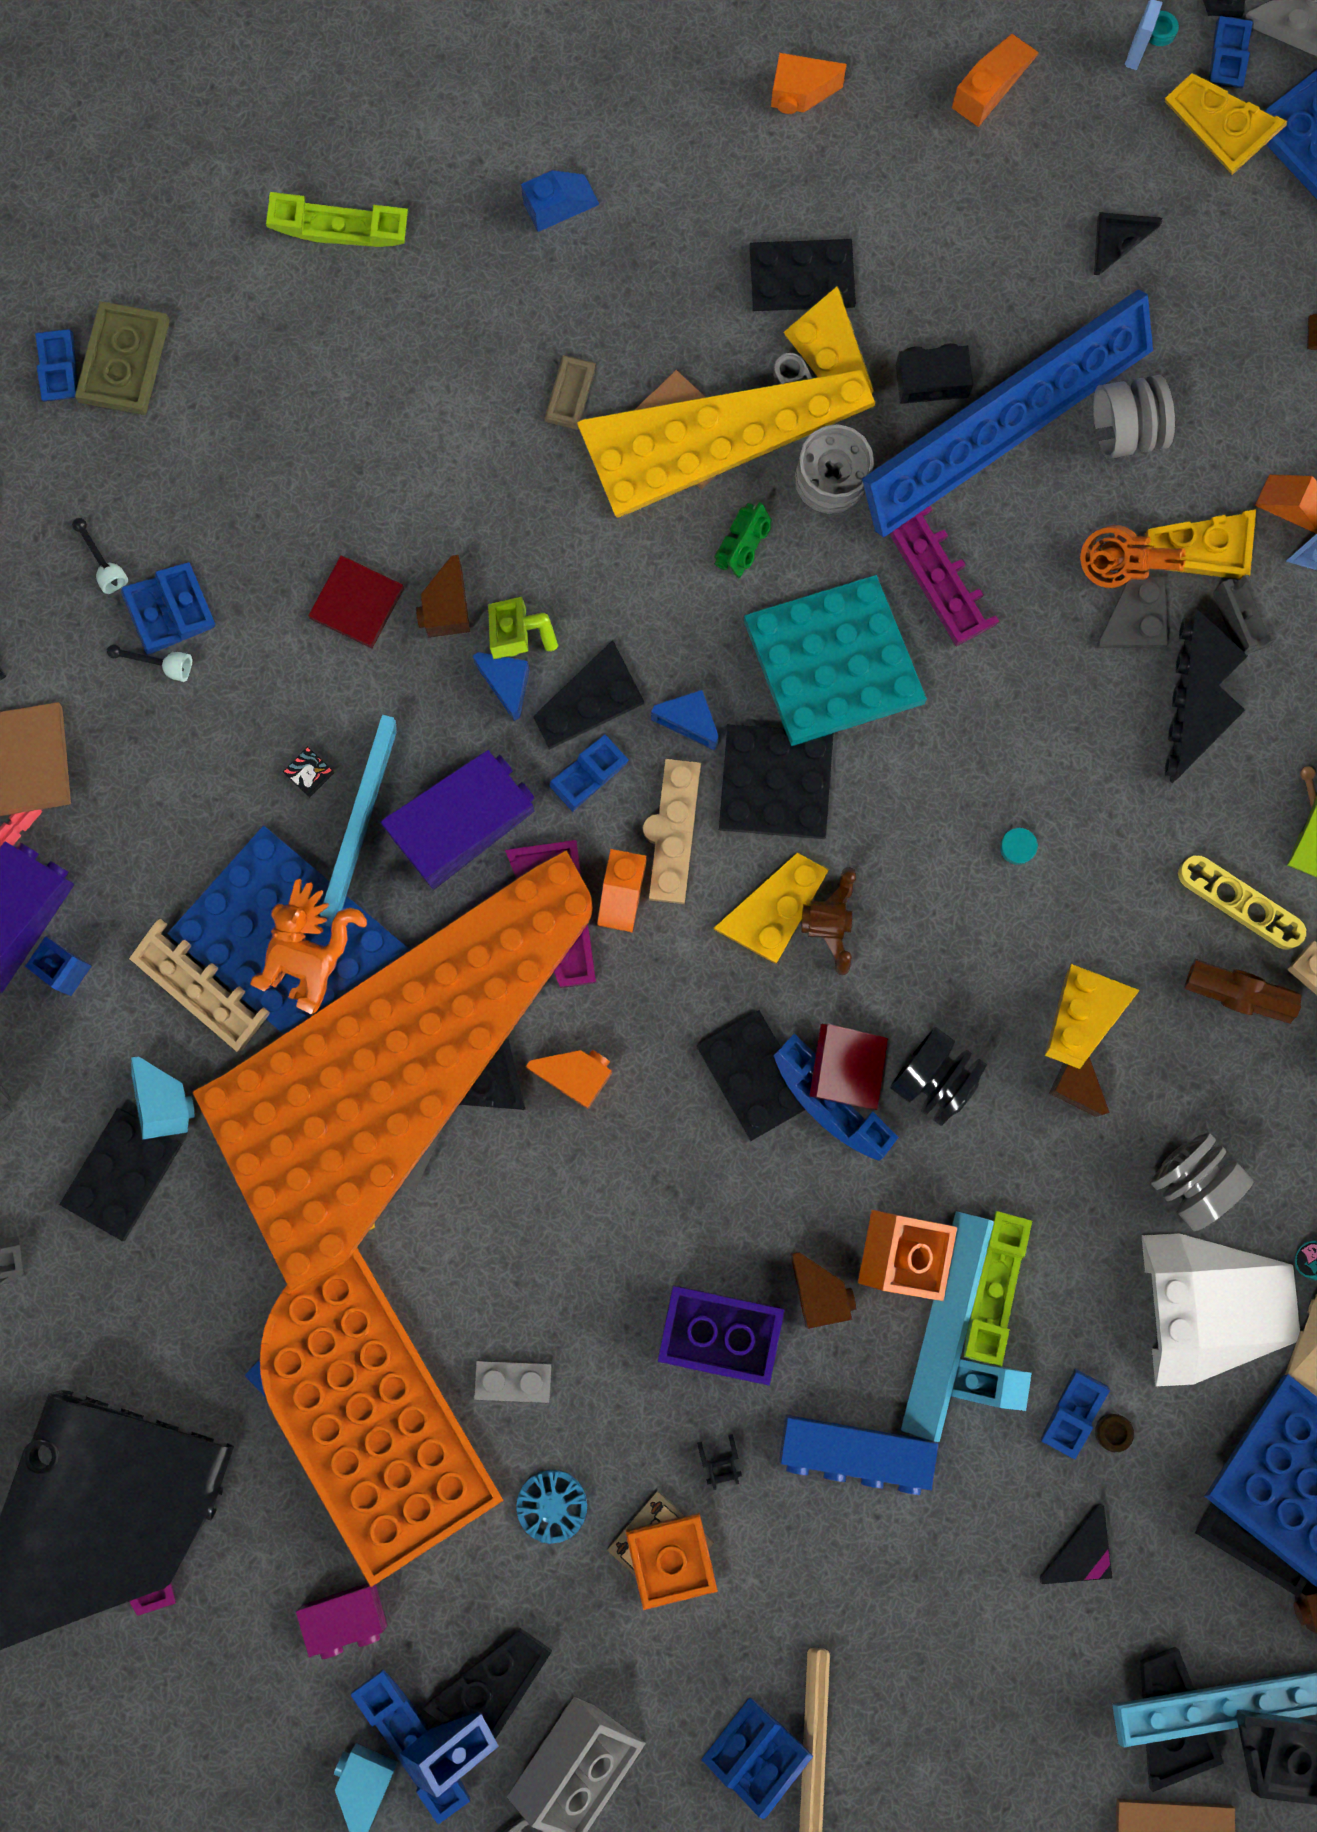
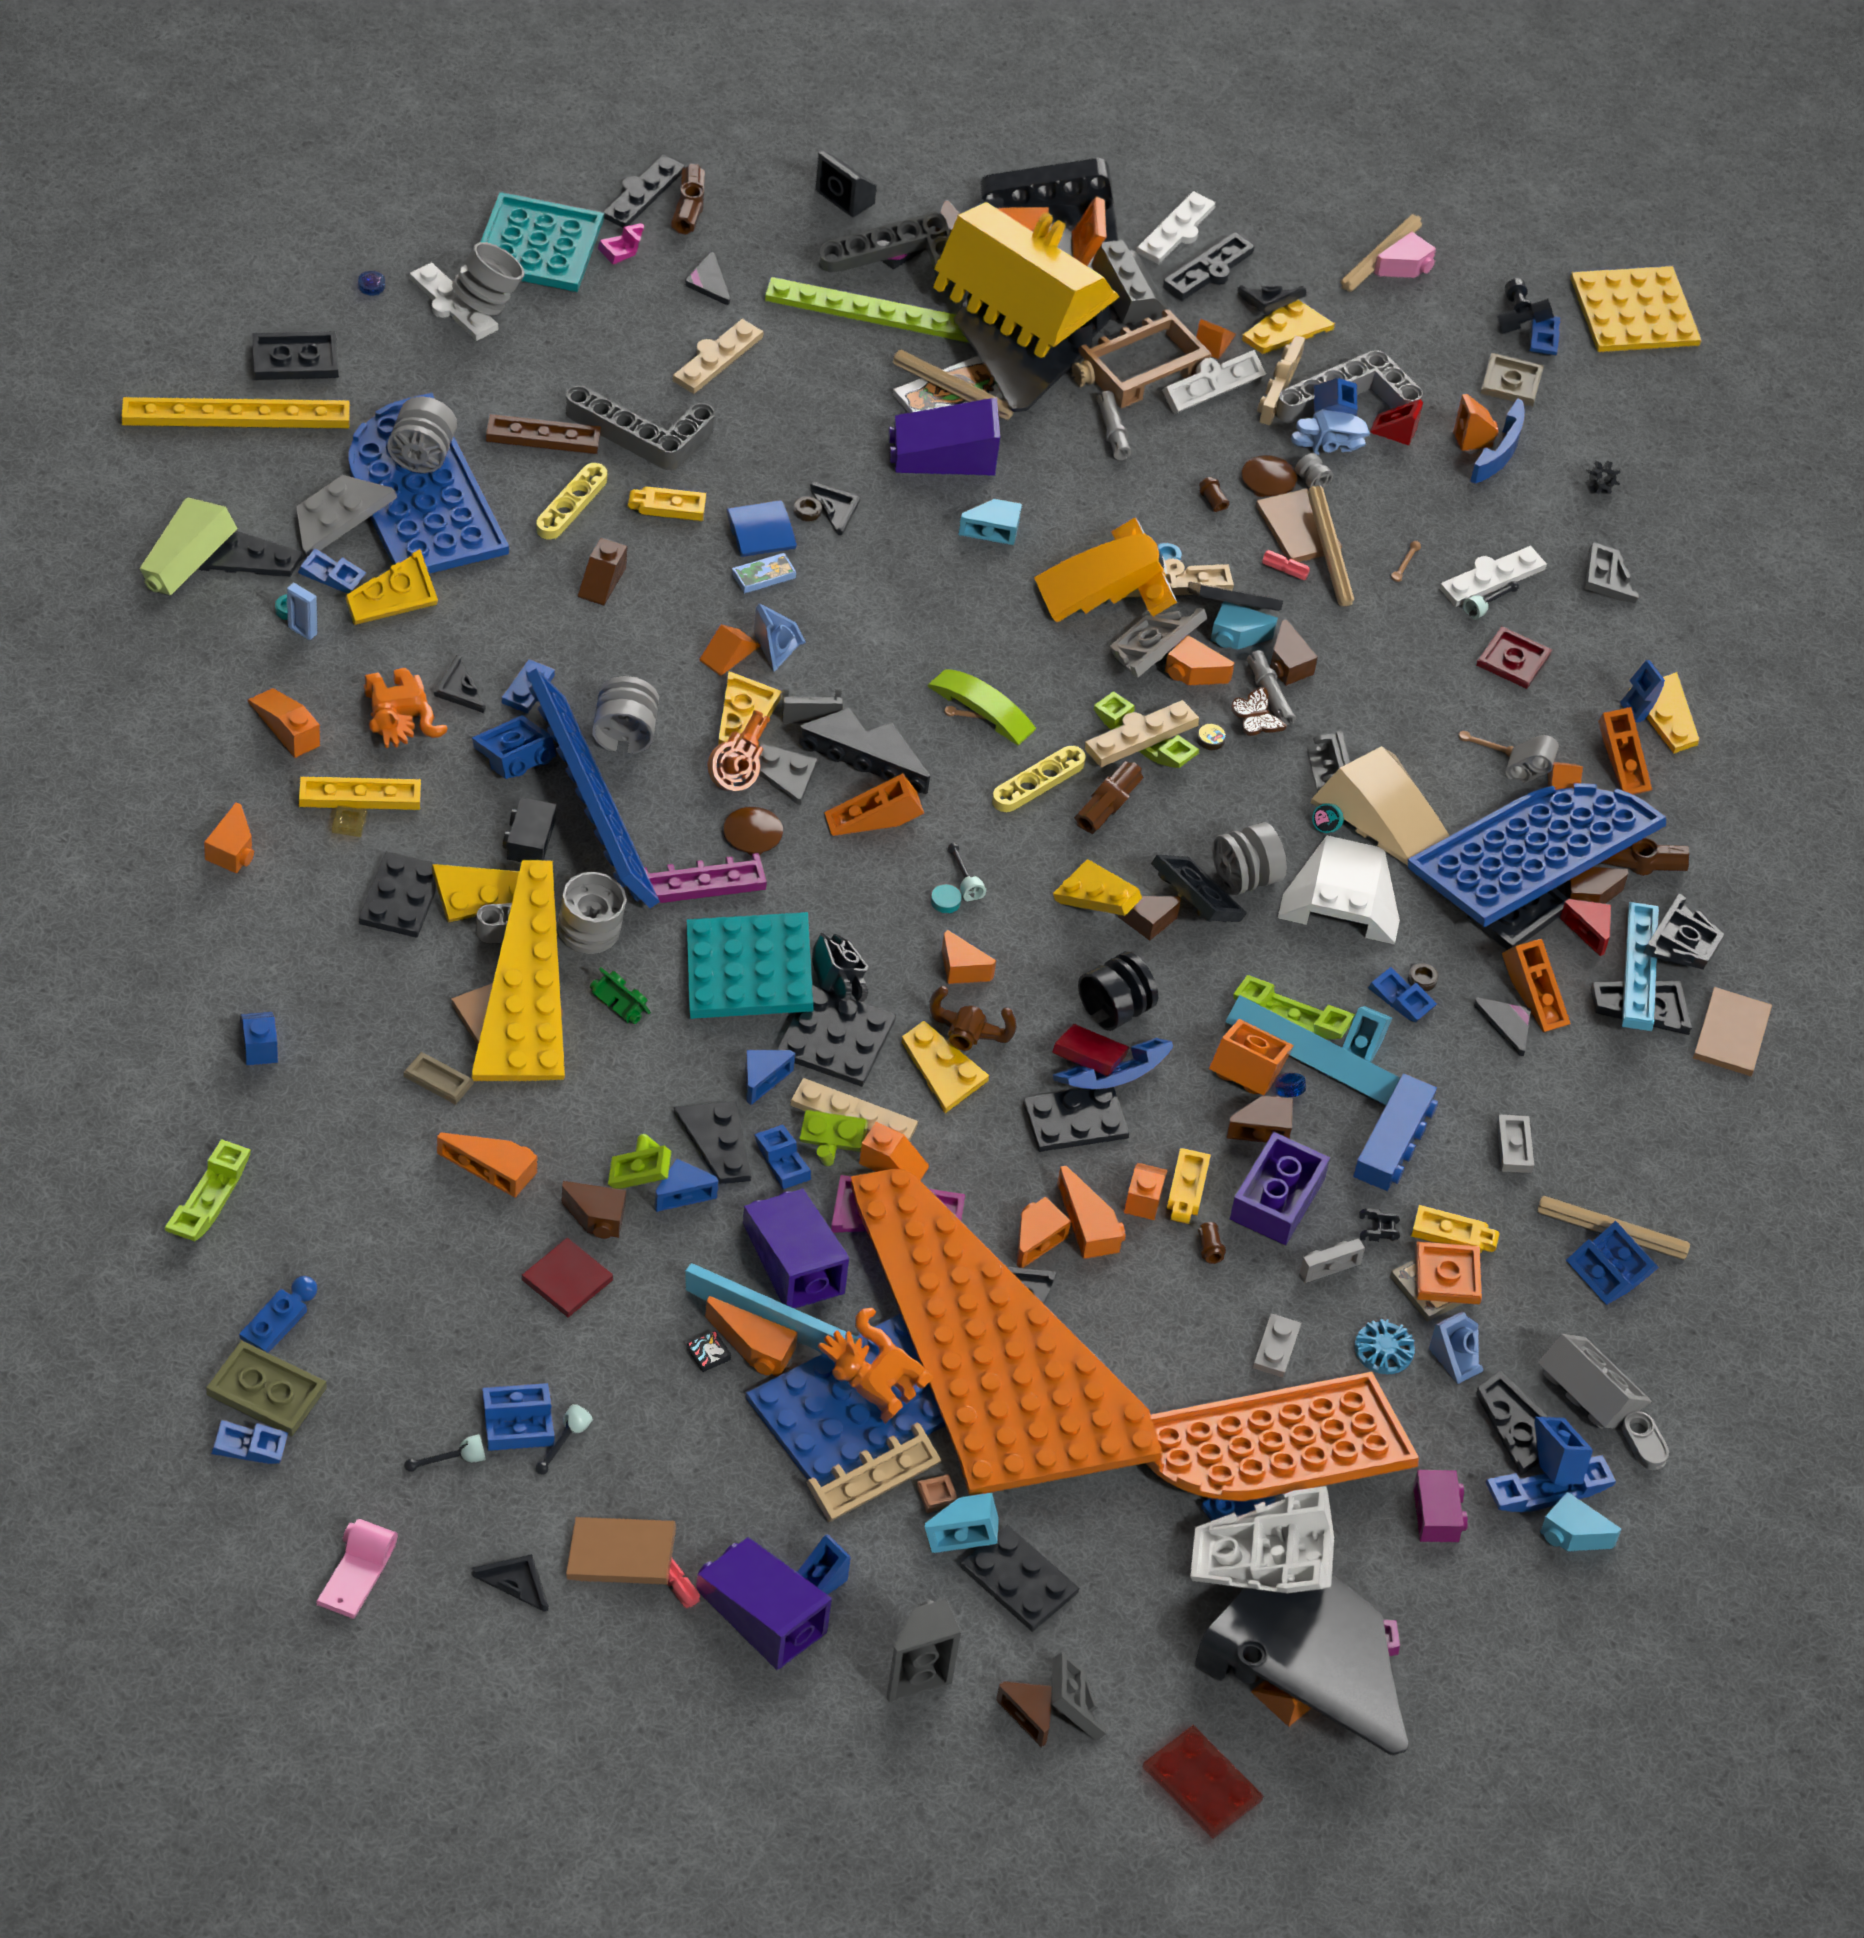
camera: 80 degrees left, 30 degrees down
(191, 1444) = (1271, 1548): none -> white wedge
(202, 1059) = (937, 1493): none -> nougat tile
(216, 340) = (279, 1315): none -> blue plate
(329, 812) = (756, 1339): none -> orange slope
(470, 490) = (493, 1160): none -> orange slope
(572, 1597) = (1457, 1346): none -> medium blue slope
(608, 1130) = (1090, 1217): none -> orange slope
(627, 1272) = (1212, 1248): none -> reddish brown pin
(634, 816) = (832, 1132): none -> lime plate
(657, 1429) = (1332, 1260): none -> light grey plate
(680, 1179) = (1145, 1191): none -> orange slope
(698, 1226) = (1188, 1184): none -> yellow hinge
(740, 1553) = (1450, 1228): none -> yellow hinge
(861, 756) = (839, 967): none -> black hinge
(882, 190) = (349, 821): none -> clear yellow tile
(887, 1310) = (1290, 1085): none -> clear blue tile
(895, 1601) = (1515, 1143): none -> light grey plate
(922, 186) = (360, 793): none -> yellow plate
(925, 889) = (965, 962): none -> orange slope
(1036, 607) = (753, 830): none -> reddish brown dish
(1046, 315) = (515, 747): none -> blue plate
(1048, 867) = (968, 883): none -> light aqua hinge
(1063, 179) = (398, 705): none -> orange animal
(1116, 731) = (877, 808): none -> orange slope
(1135, 1131) = (1198, 888): none -> black plate
(1149, 1578) = (1536, 983): none -> orange slope
(1165, 306) = (518, 693): none -> blue plate
(1274, 1628) = (1589, 922): none -> red slope

